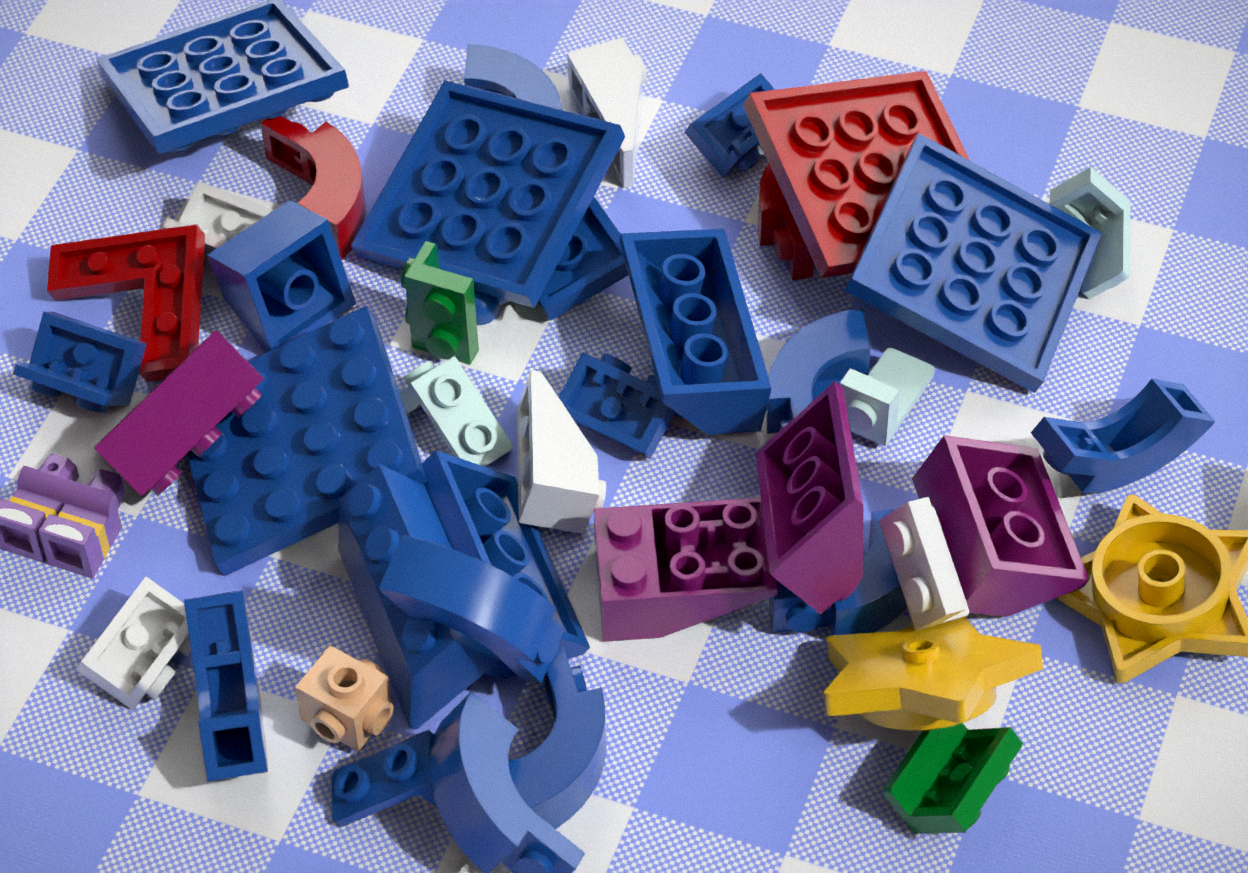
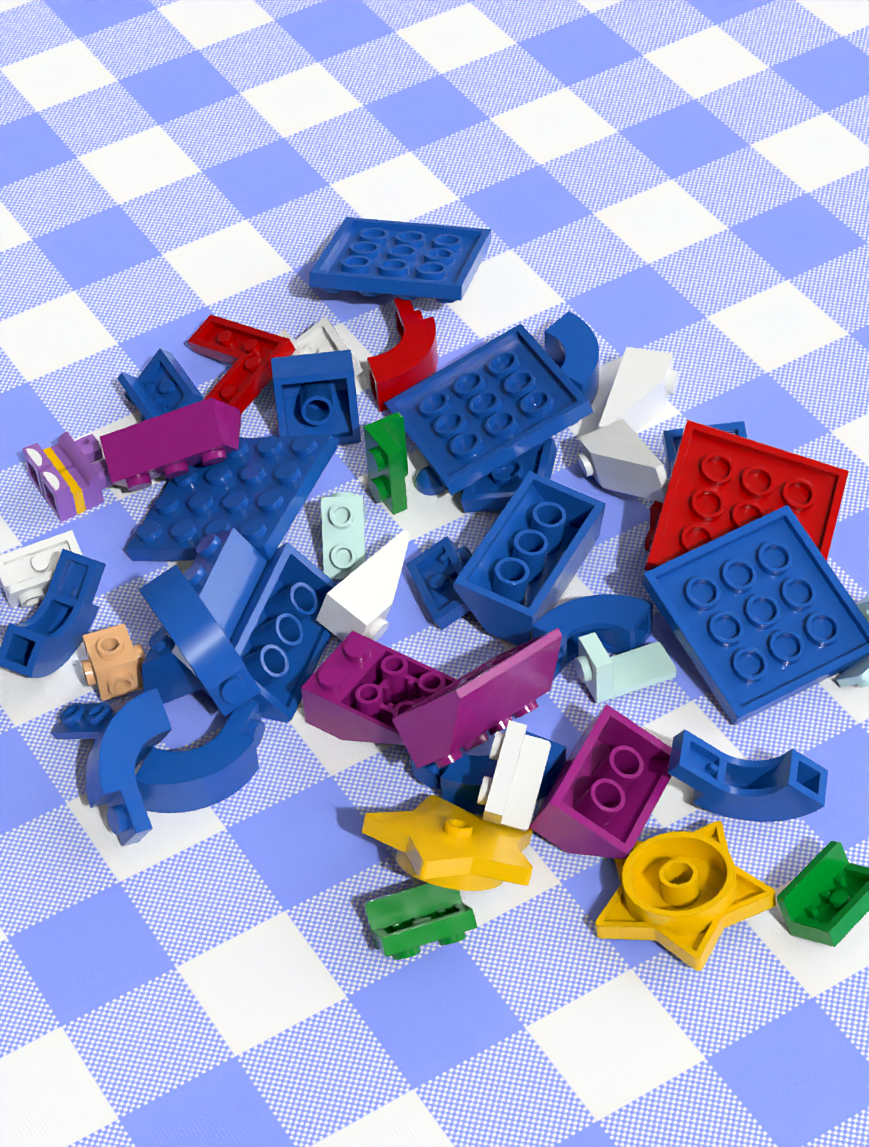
camera: 40 degrees right, 5 degrees down
(691, 176) = (622, 462): none -> white slope

